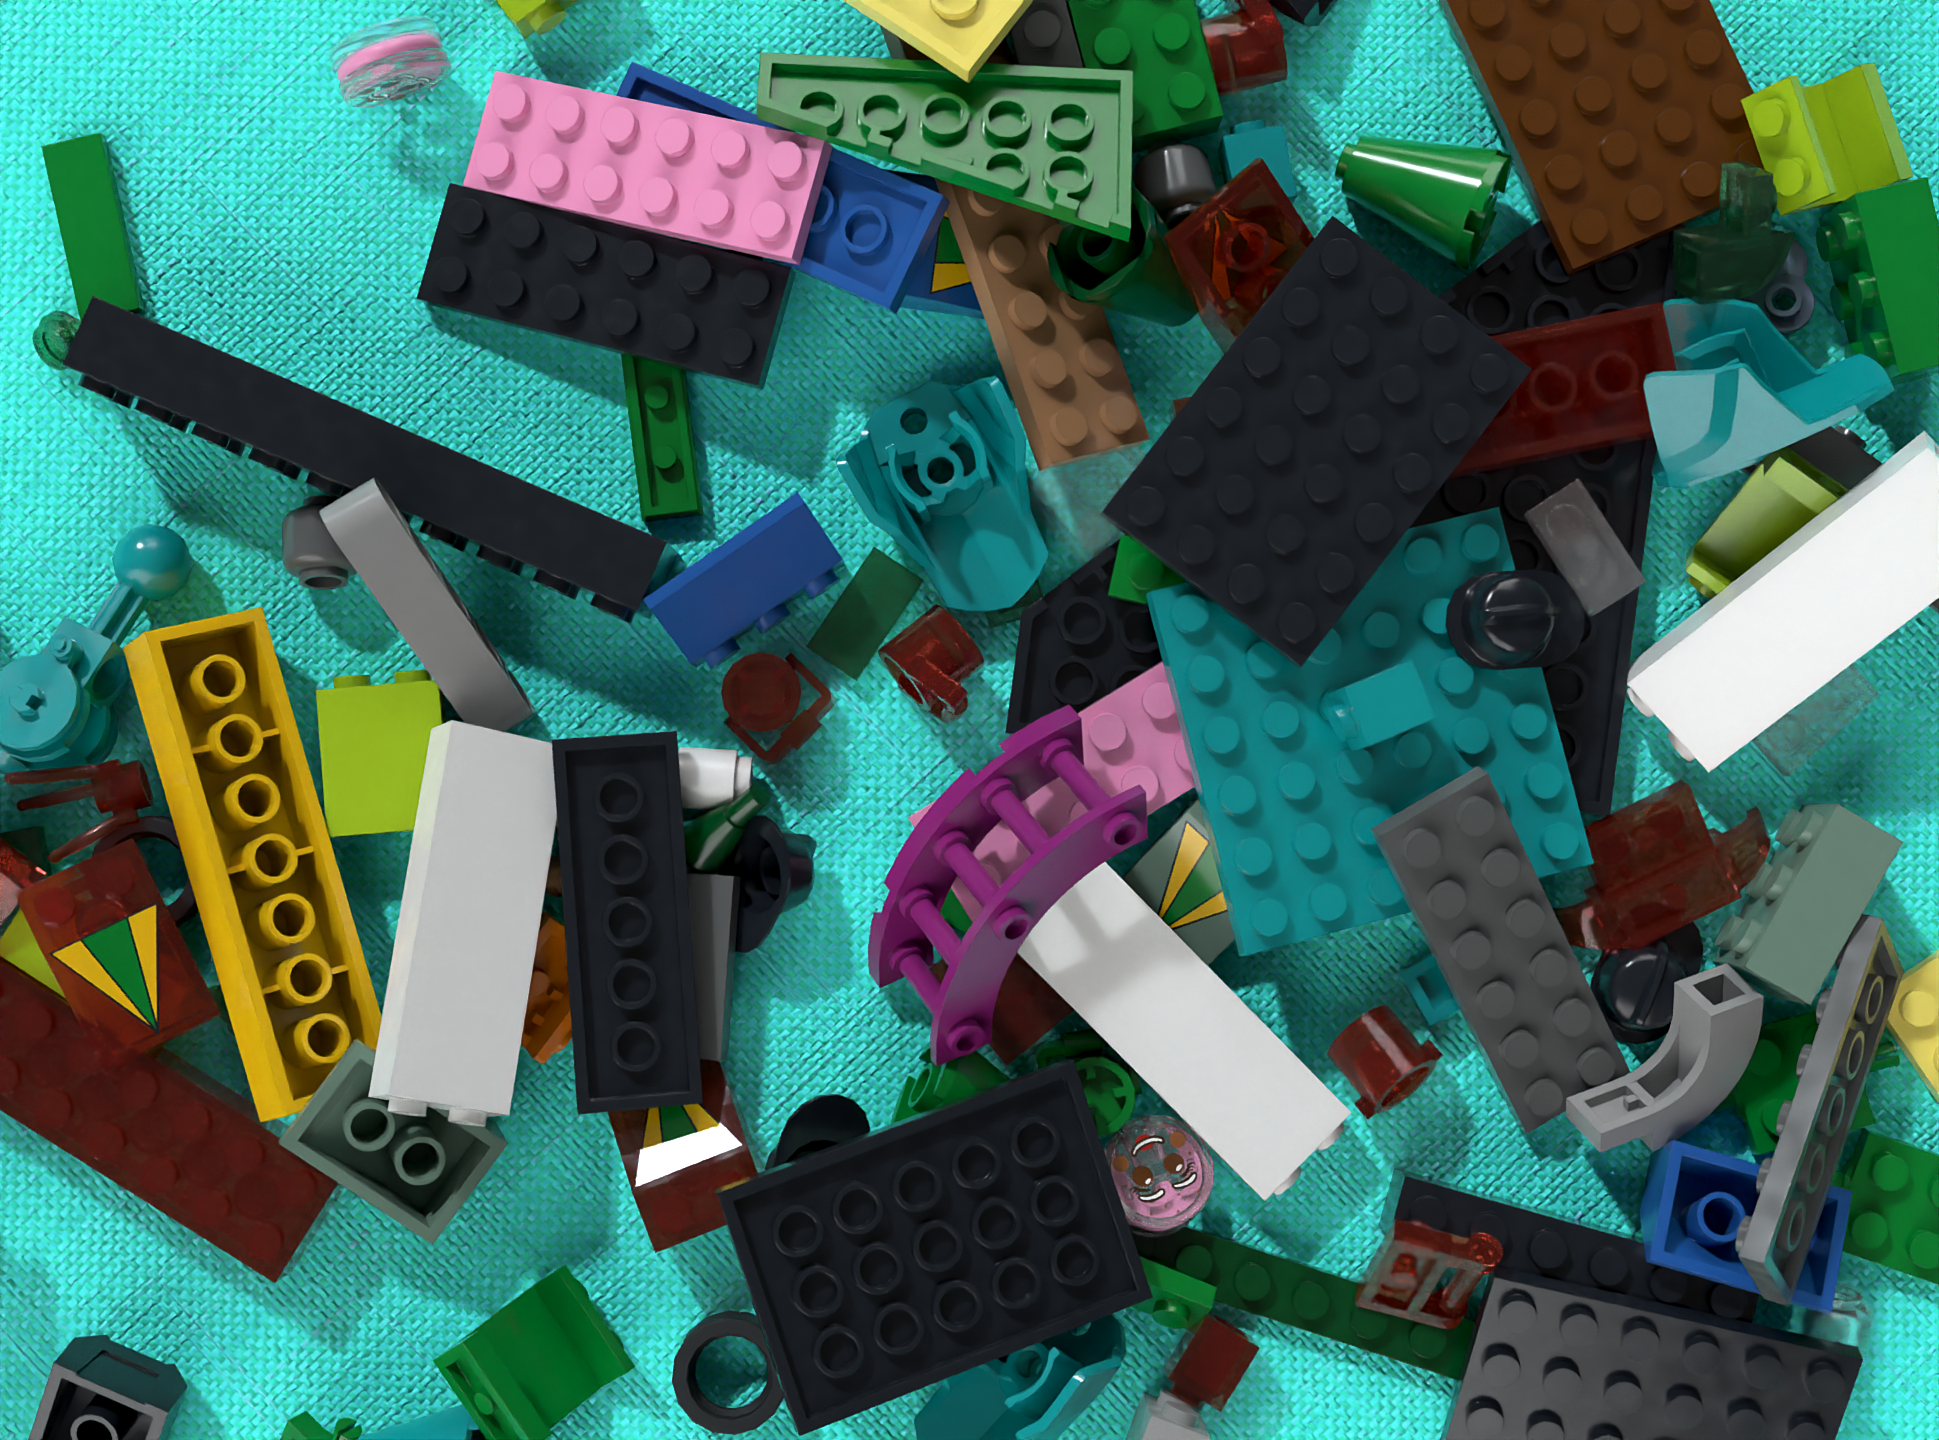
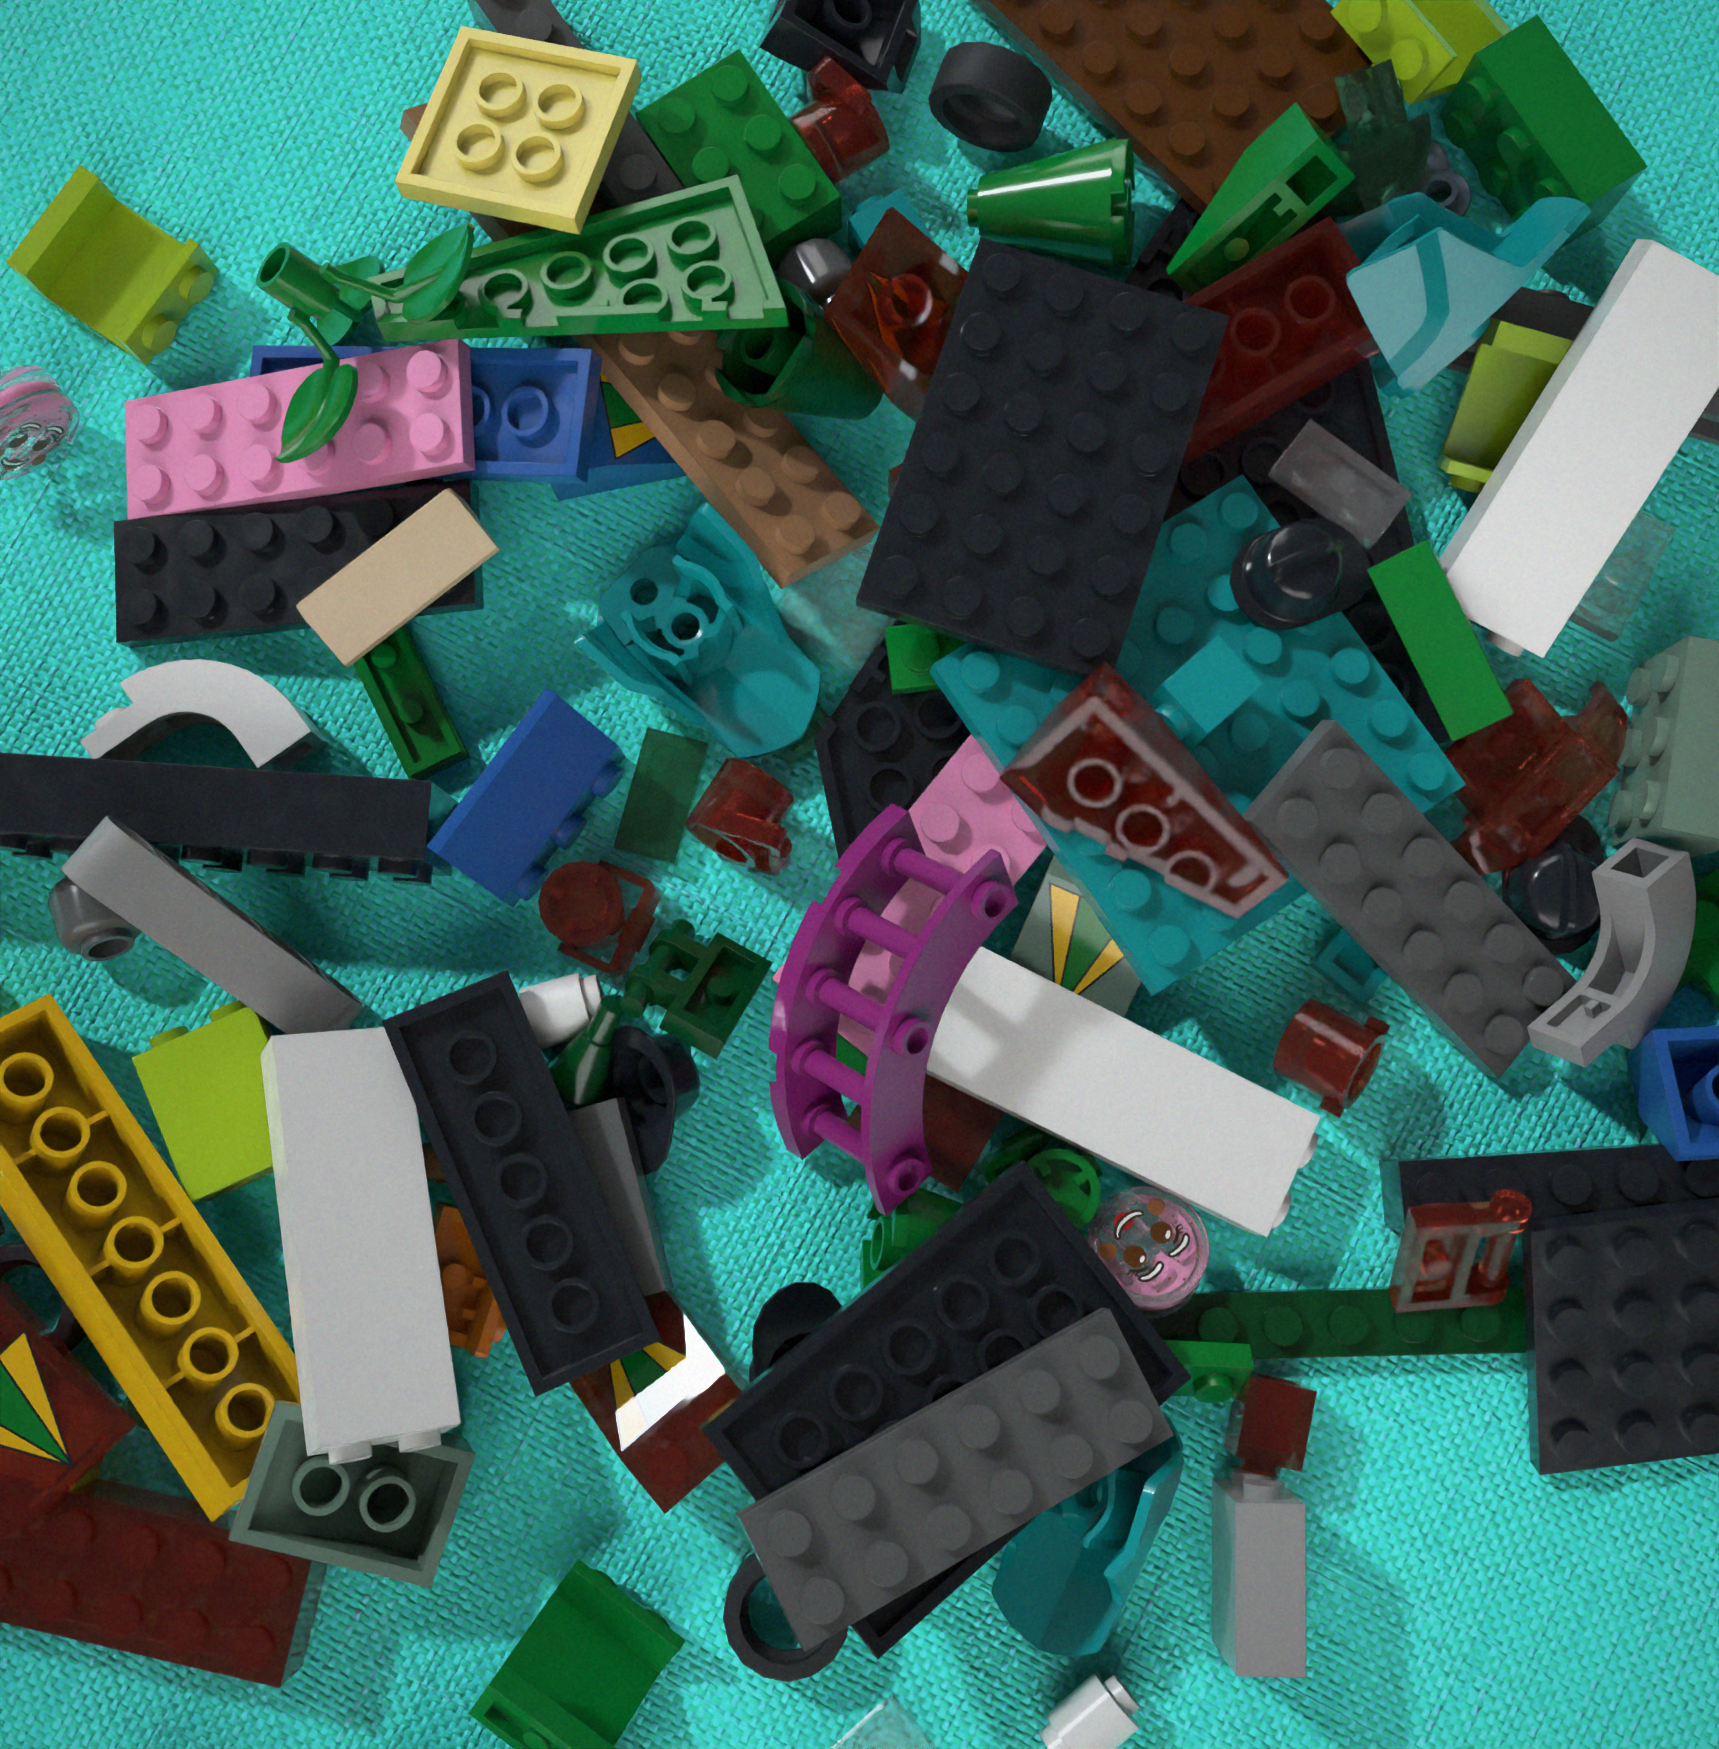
camera: 10 degrees left, 5 degrees down
(525, 411) = (206, 693): none -> white arch
(697, 341) = (398, 577): none -> tan slope
(713, 56) = (338, 302): none -> green plant
(852, 816) = (711, 999): none -> dark green plate
(919, 1307) = (953, 1477): none -> dark grey plate
(1285, 763) = (1131, 784): none -> clear red wedge
(1397, 64) = (990, 97): none -> black tyre
(1607, 263) = (1263, 200): none -> green slope
(1619, 725) = (1440, 640): none -> green tile

